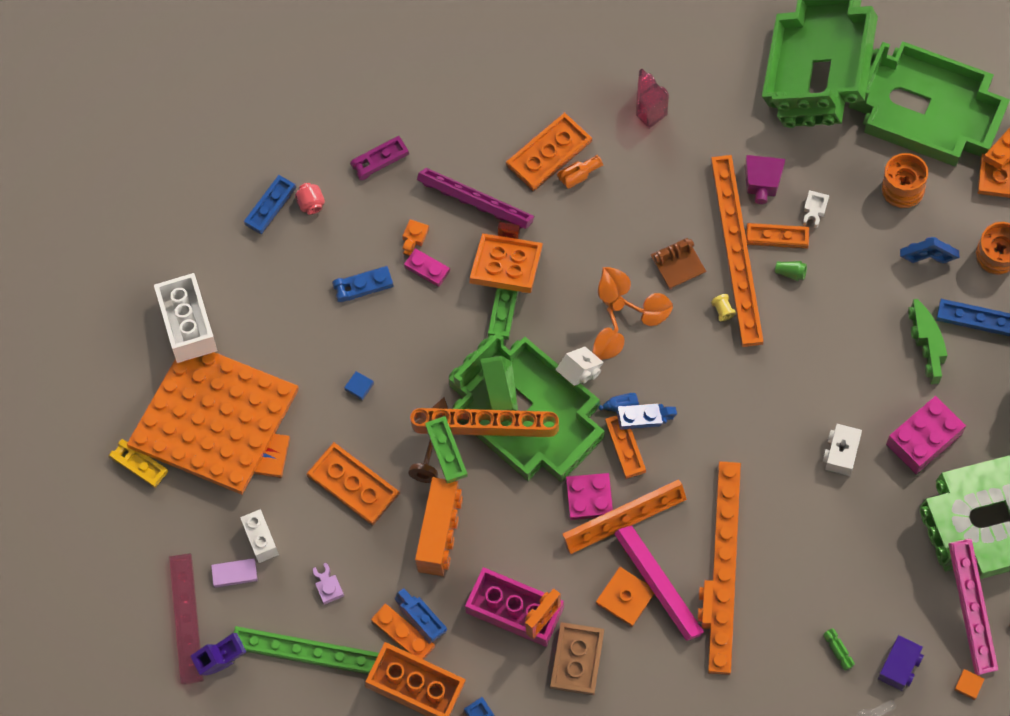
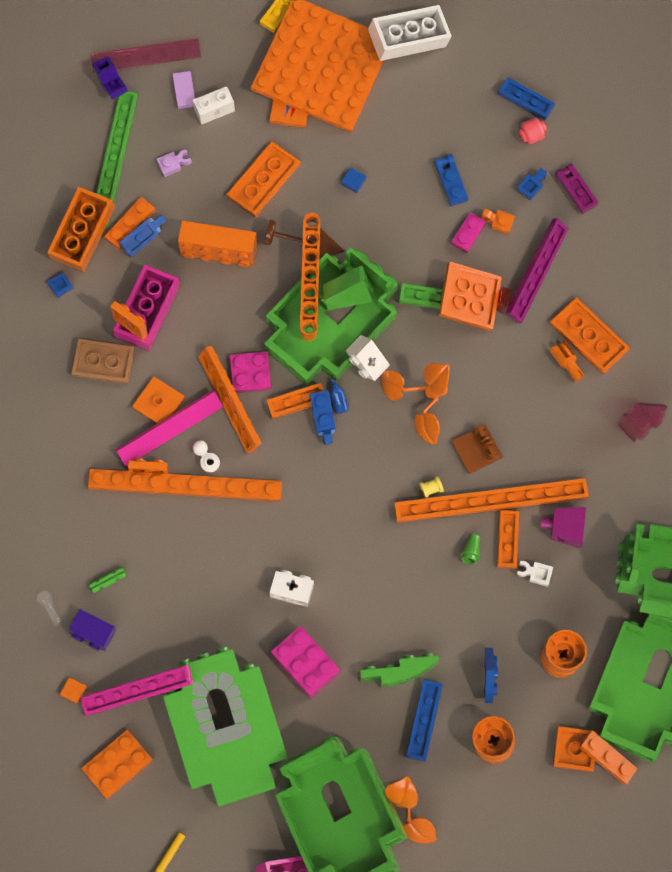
camera: 85 degrees right, 5 degrees up
(374, 202) = (532, 185): none -> blue plate
(446, 449) = (279, 240): bright green plate -> none
(682, 548) = (200, 448): none -> white plate

